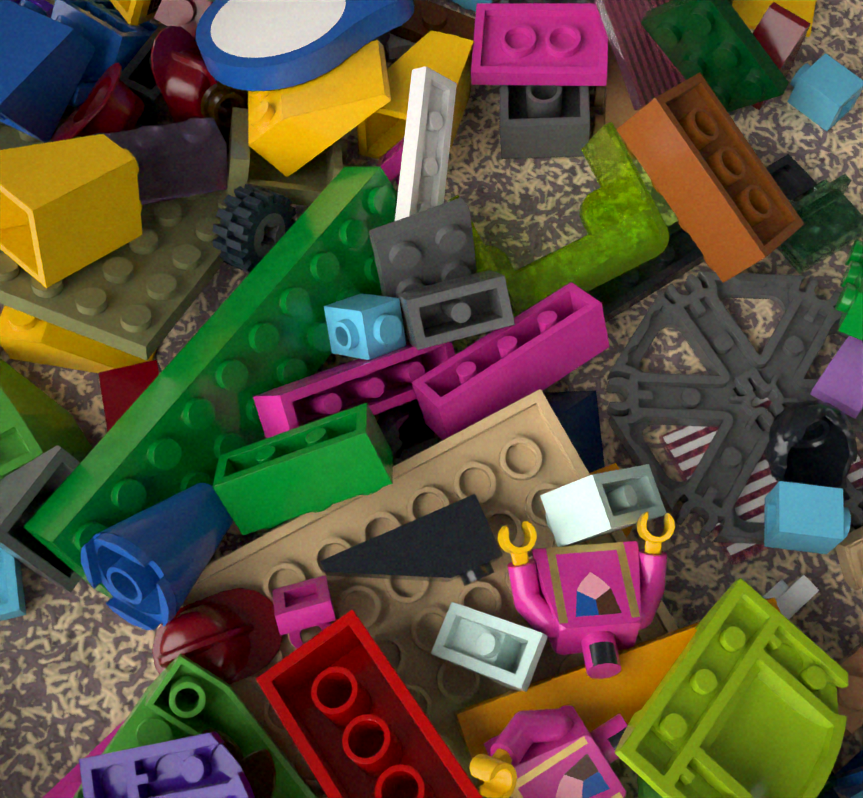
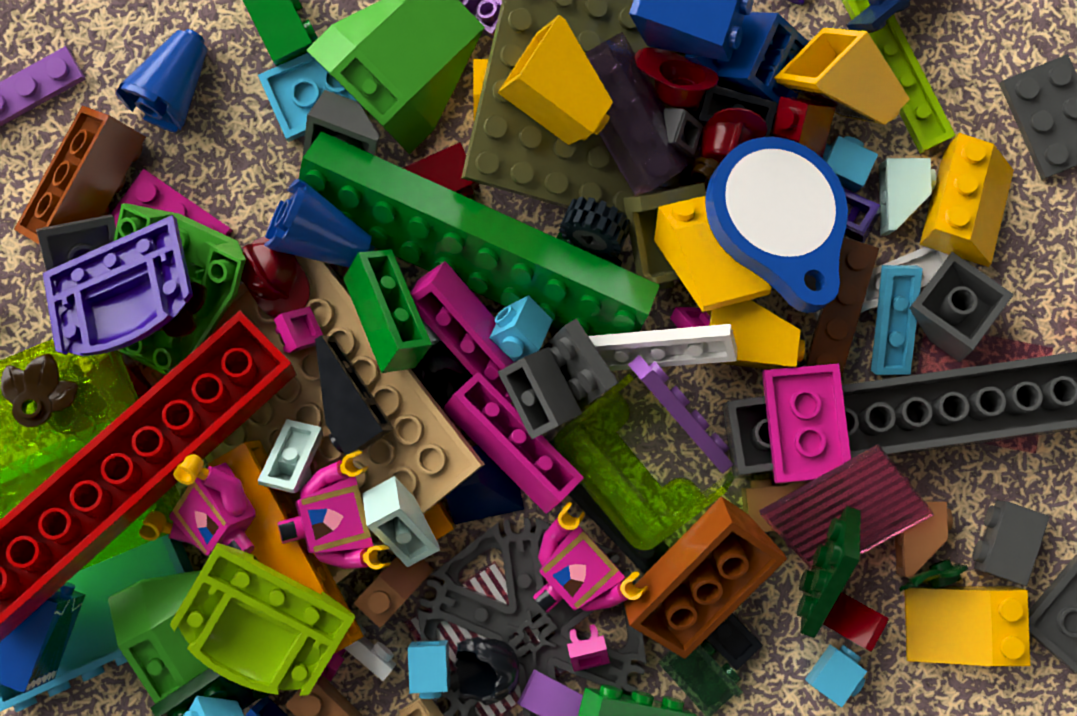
camera: 85 degrees right, 20 degrees up
(158, 114) = (682, 130): none -> dark grey slope
(503, 171) = (675, 403): none -> medium lavender plate
(685, 316) = (579, 569): none -> torso
(694, 569) = (391, 589): none -> medium nougat slope
(791, 327) = (588, 652): none -> dark pink tile

